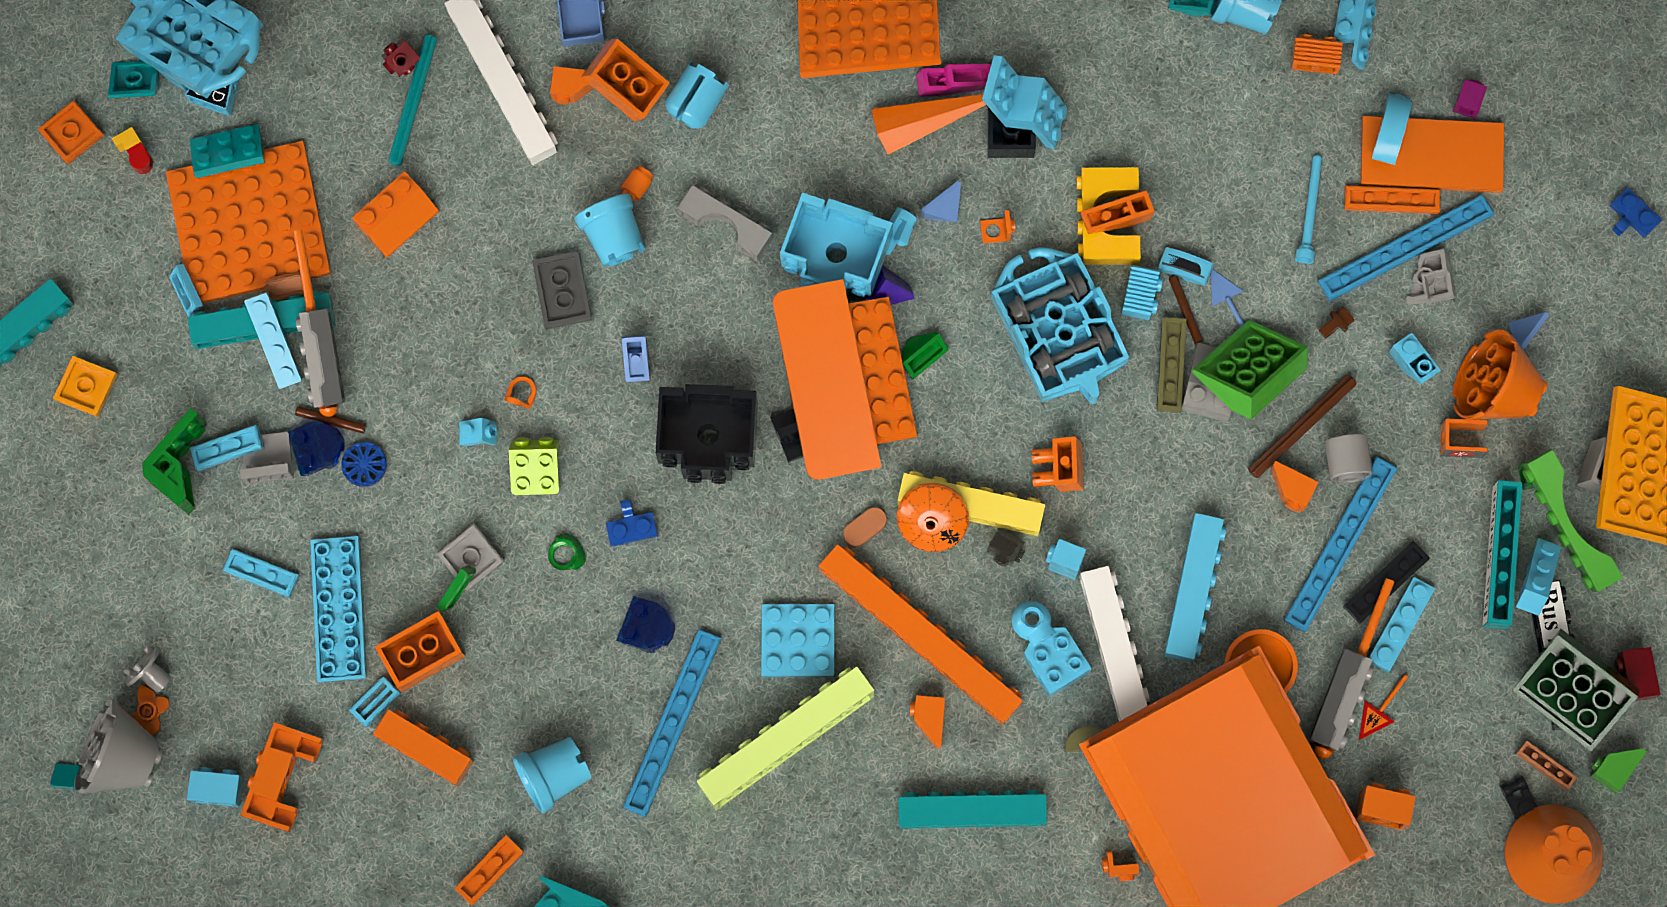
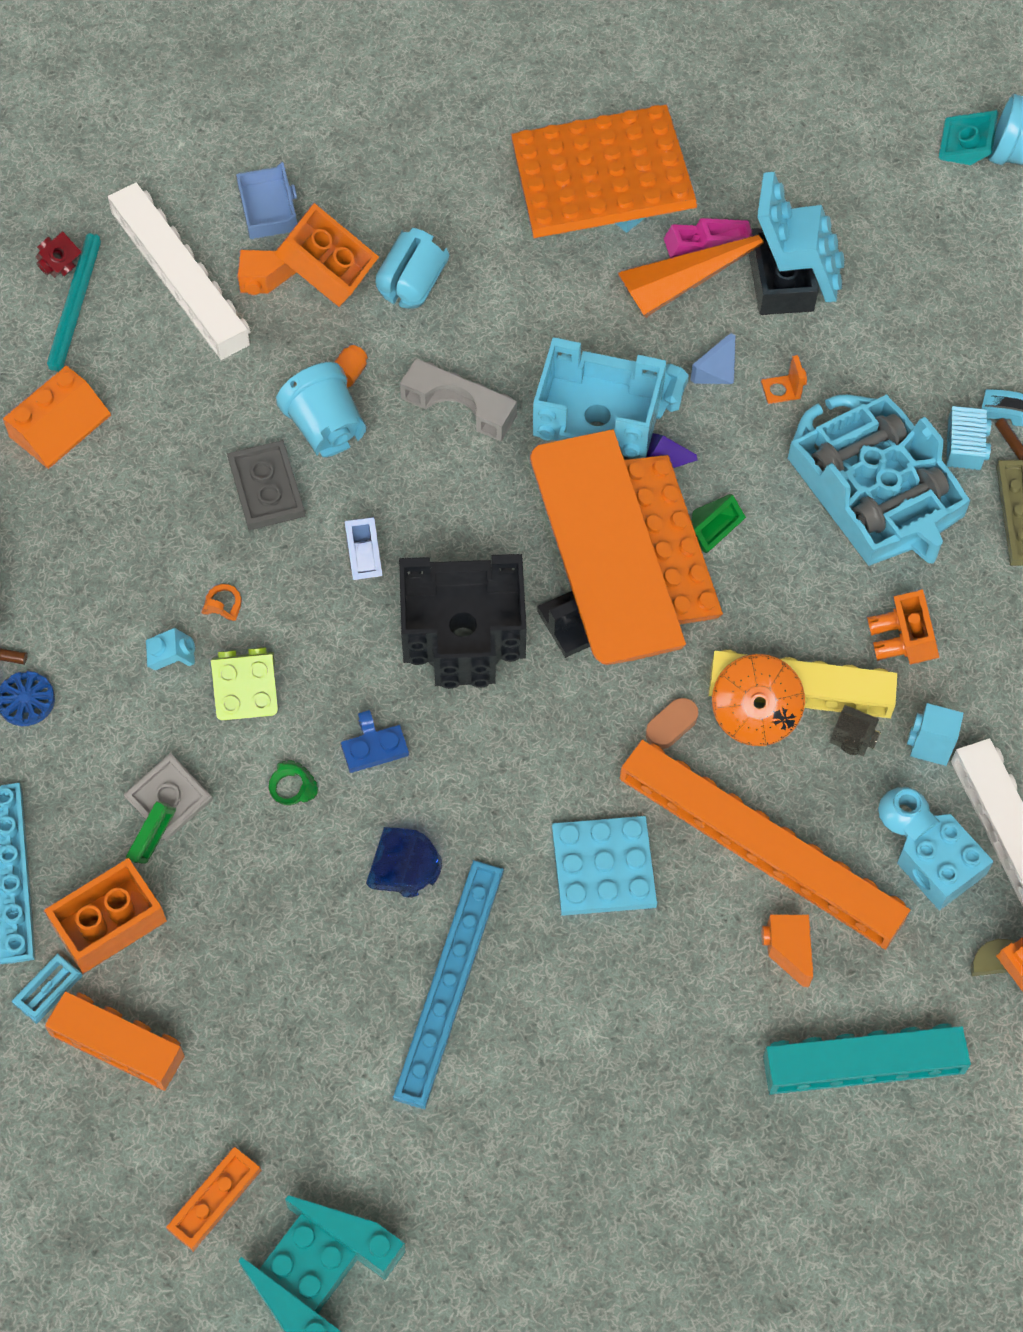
camera: 10 degrees left, 15 degrees down
(551, 772) = (292, 1054): medium azure piece -> none
(785, 738) = (603, 984): yellowish green brick -> none
(1095, 186) = (903, 328): yellow arch -> none
(1118, 213) = (929, 352): orange slope -> none

